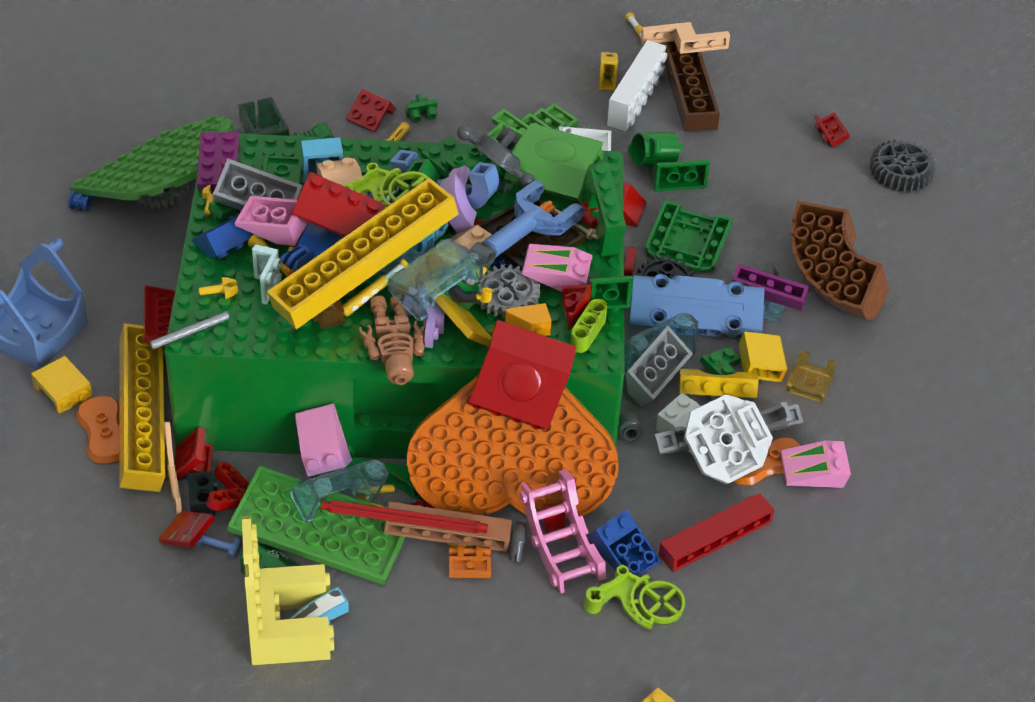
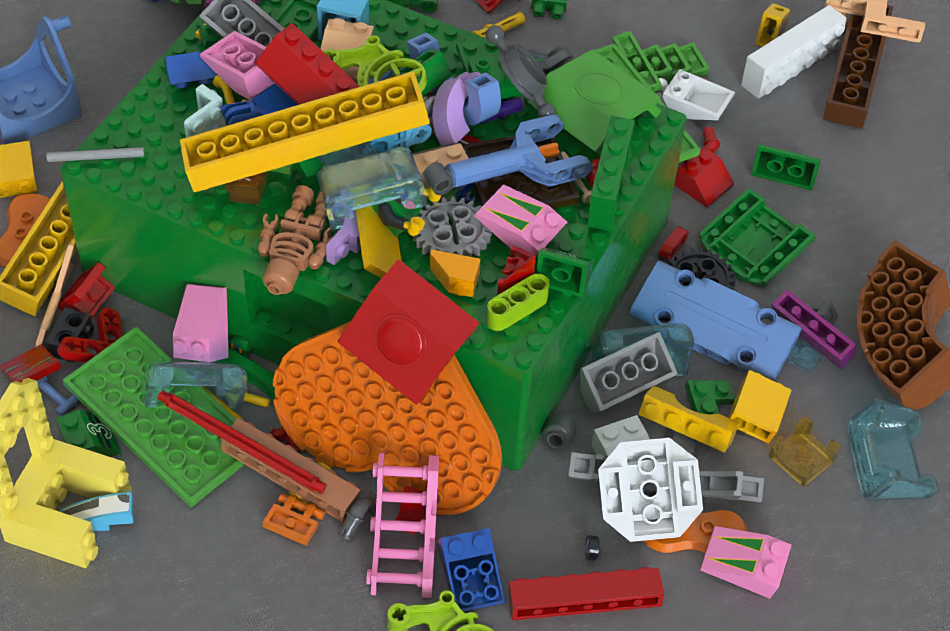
camera: 25 degrees right, 5 degrees up
(227, 287) = (163, 122): yellow bar -> none
(367, 293) = (293, 180): yellow piece -> none
(654, 148) = (772, 127): green container -> none
(701, 499) = (592, 547): none -> black tile
(862, 355) = (885, 453): none -> clear light blue windscreen

